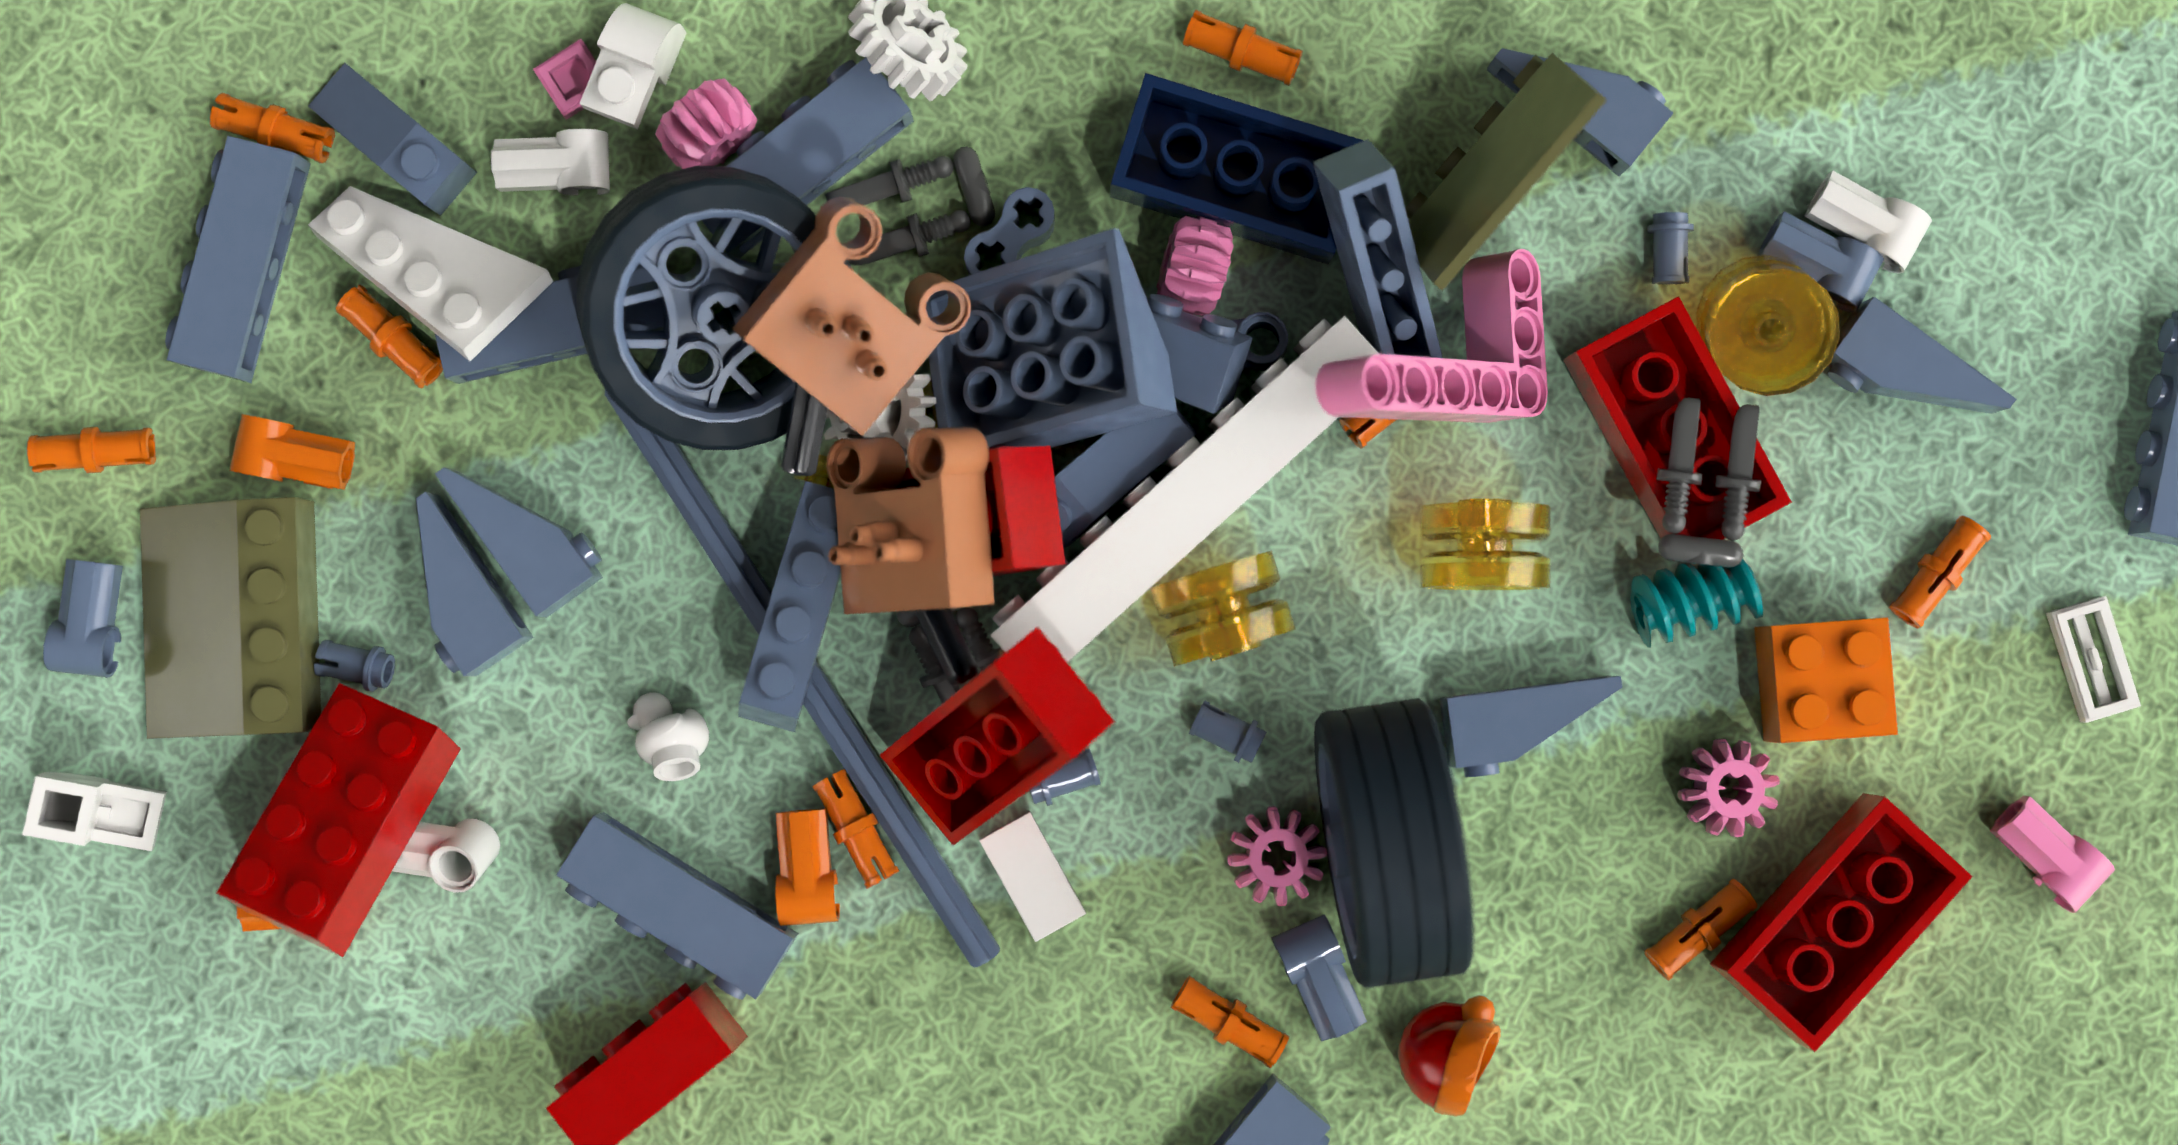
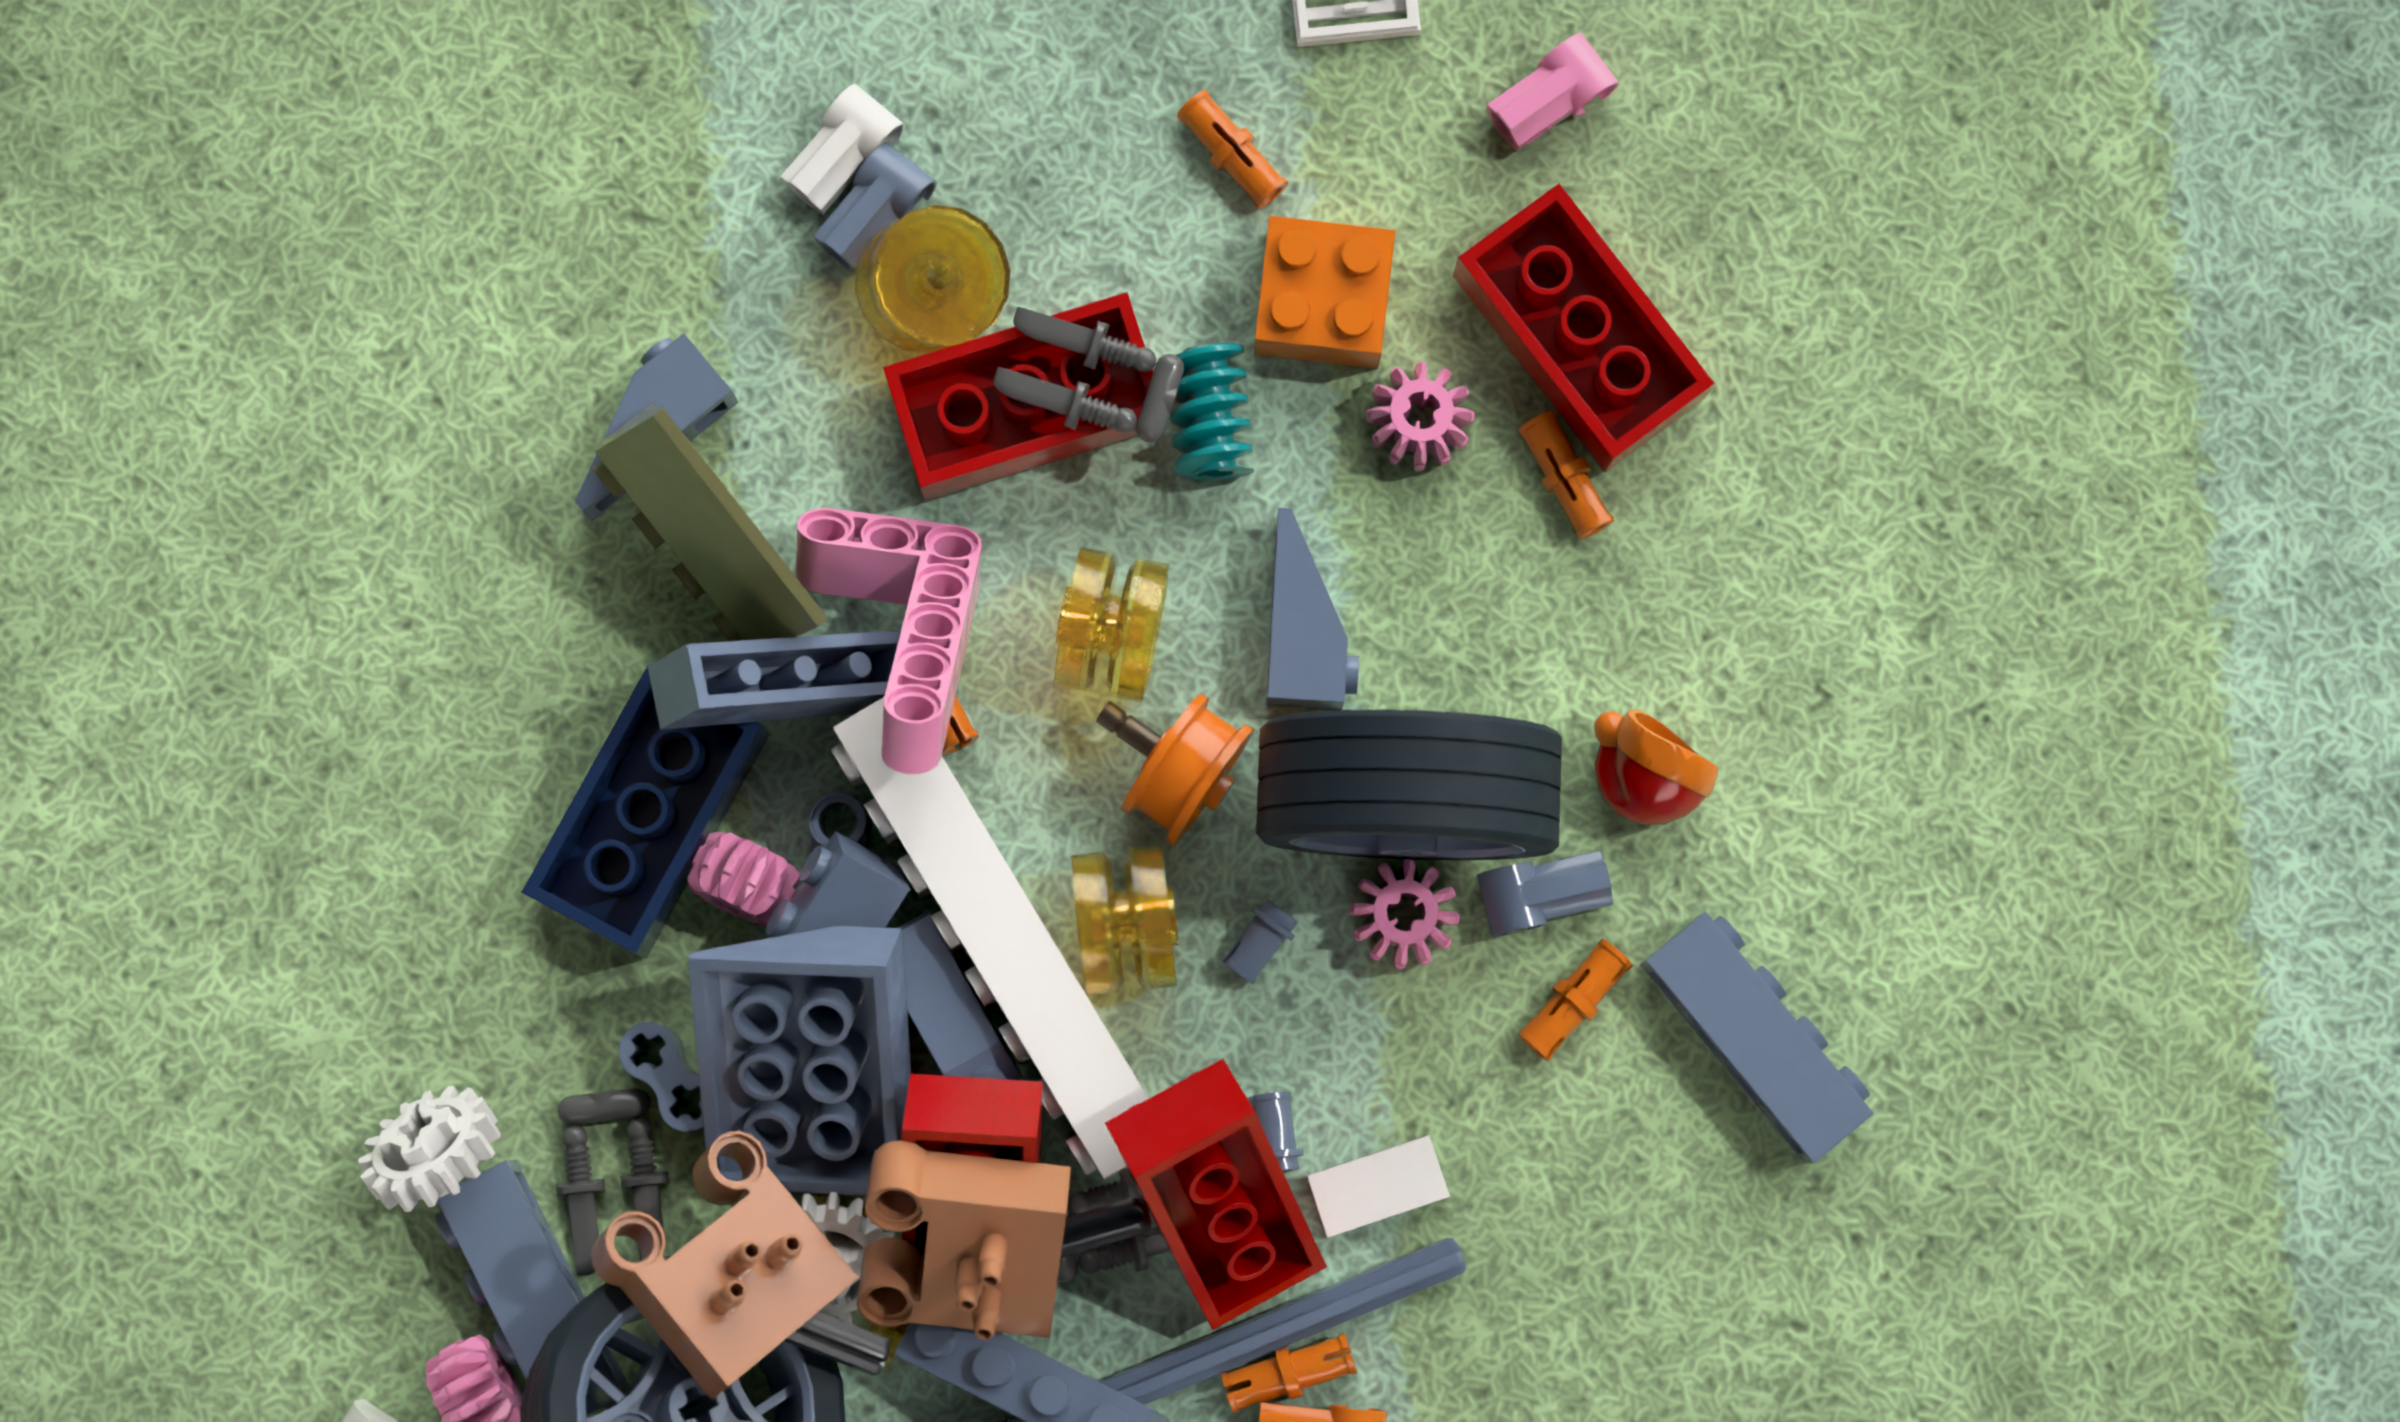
camera: 75 degrees left, 5 degrees down
(1242, 47) = (512, 781): orange pin -> none
(1369, 634) = (1182, 767): none -> orange wheel
(1670, 247) = (827, 363): sand blue pin -> none
(1898, 360) = (996, 150): sand blue slope -> none

